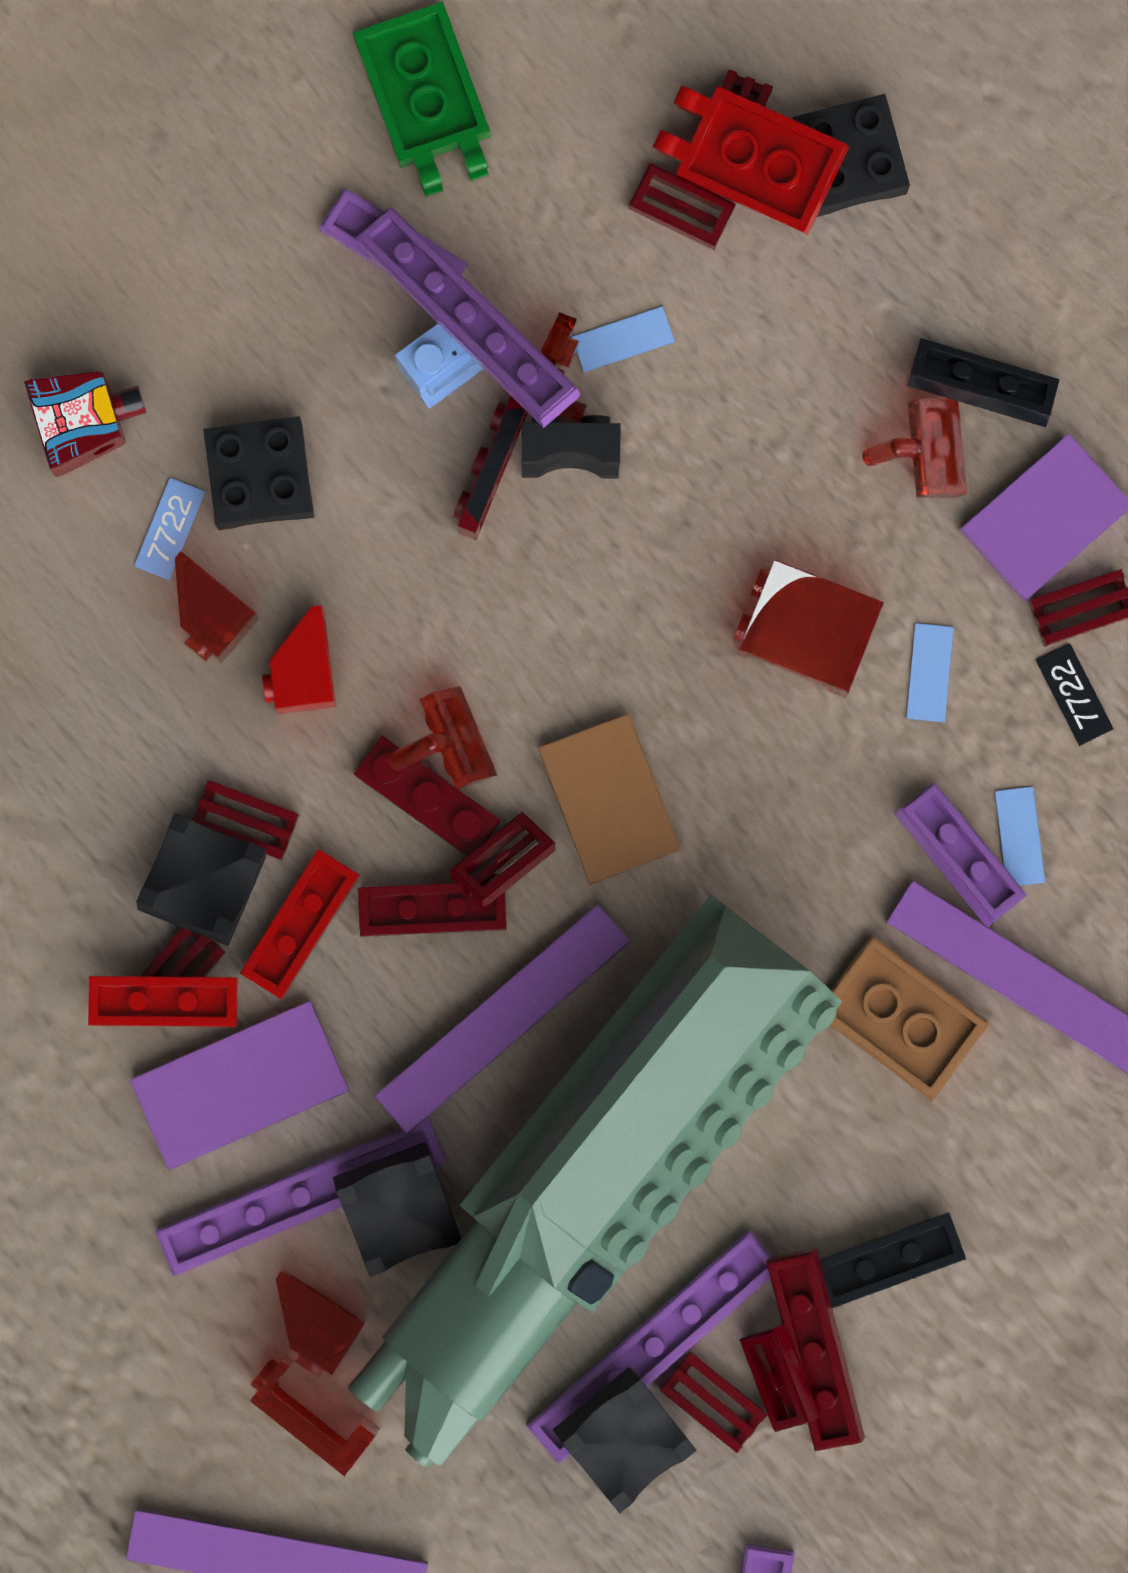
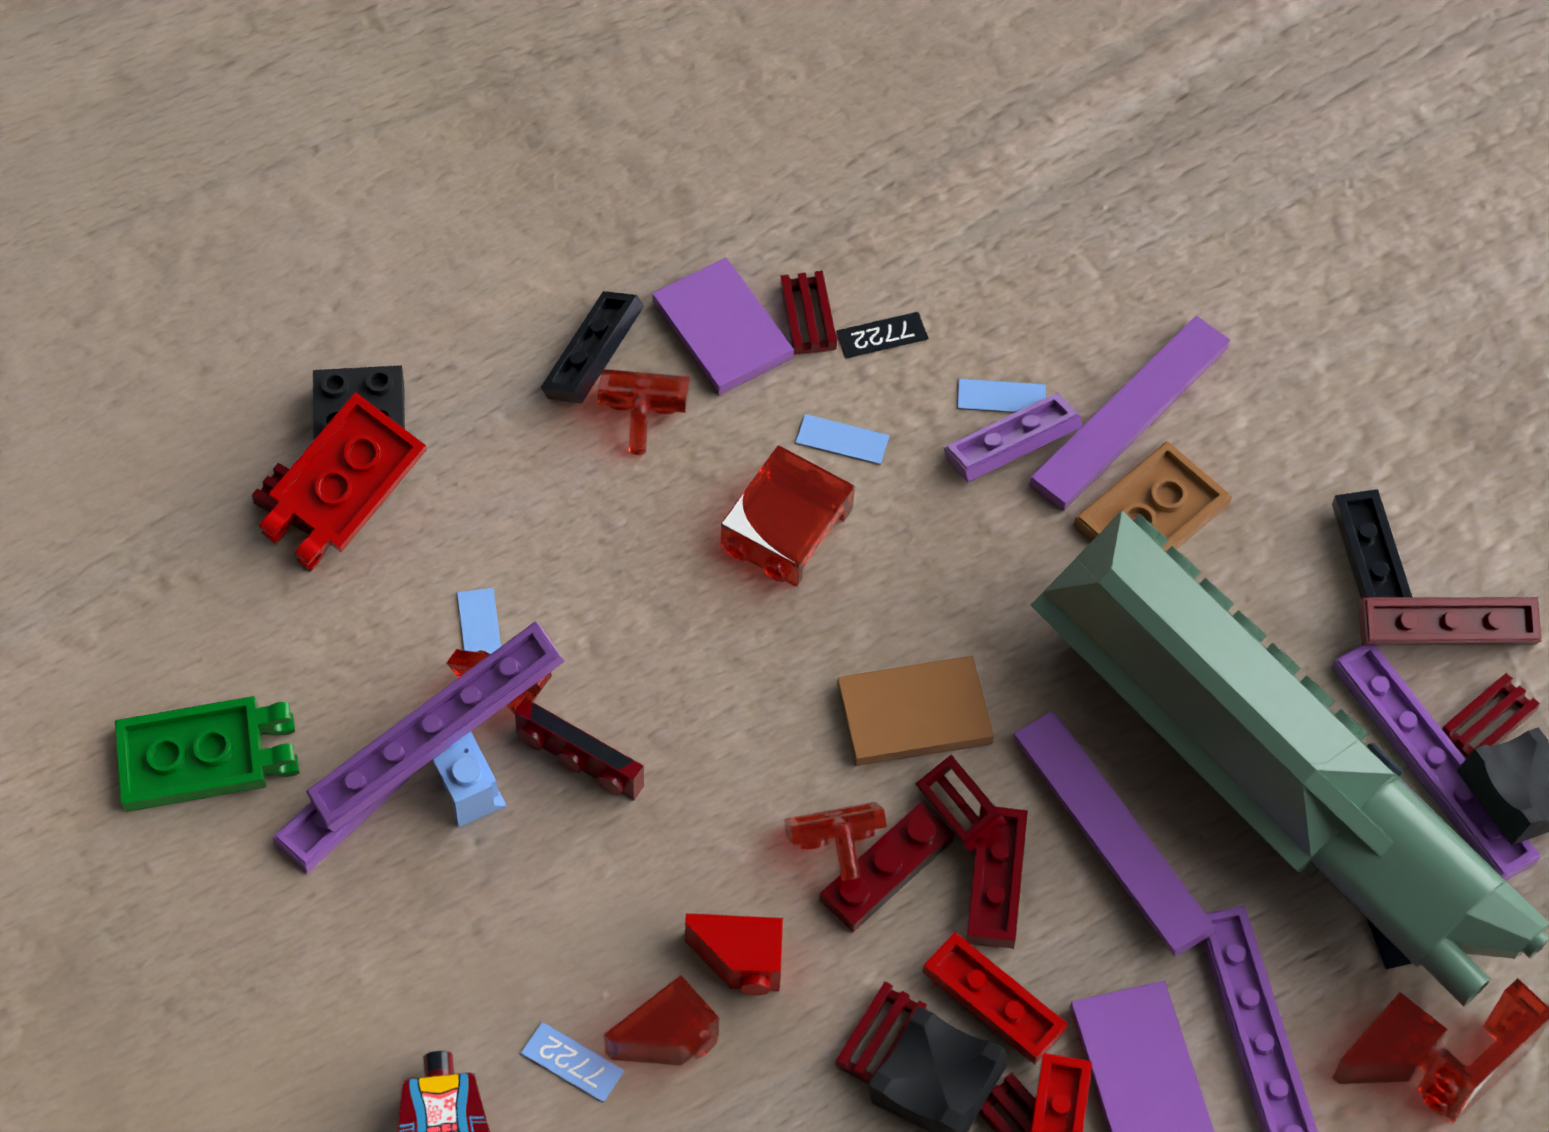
camera: 80 degrees left, 25 degrees down
(258, 472) = (537, 960): black brick -> none
(396, 1208) = (1287, 947): black brick -> none
(583, 445) = (585, 662): black brick -> none
(674, 223) = (358, 592): dark red tile -> none
(784, 1377) = (1437, 660): dark red tile -> none

